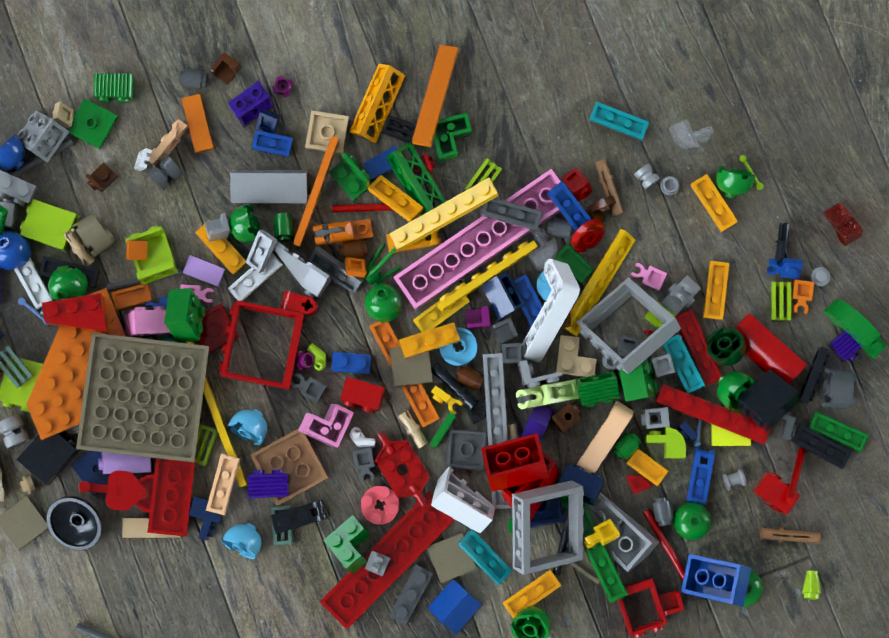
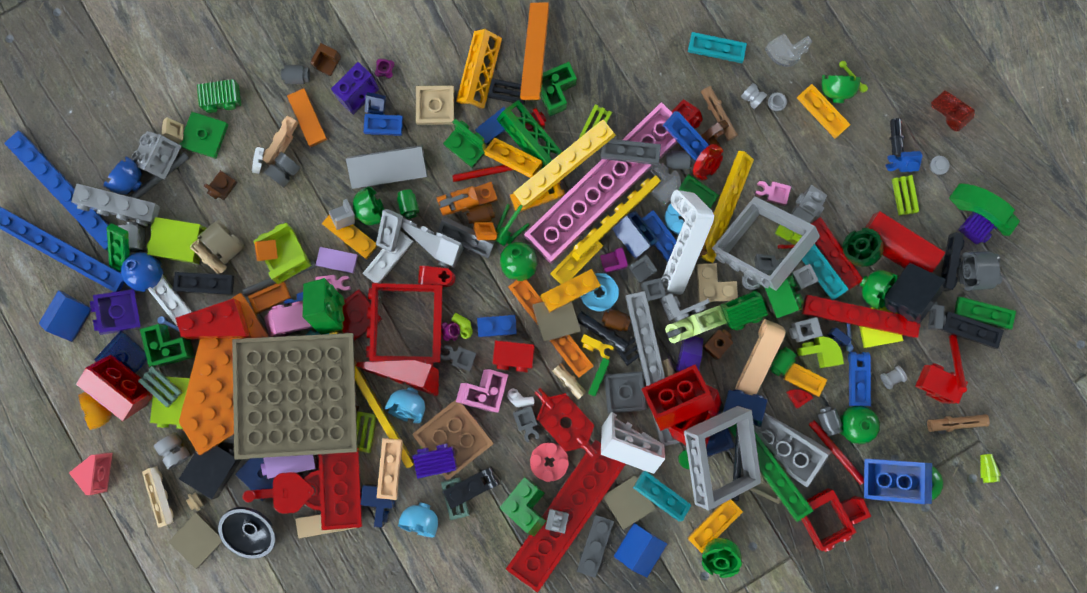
camera: 10 degrees left, 0 degrees up
(19, 332) = (161, 349): none -> green brick
(67, 283) = (202, 294): green cylinder -> none
(266, 398) = (416, 374): none -> wedge
(316, 191) = (434, 163): orange tile -> none
(604, 533) = (777, 452): yellow plate -> none
(716, 290) = (841, 195): light orange plate -> none
(802, 292) = (925, 182): orange plate -> none

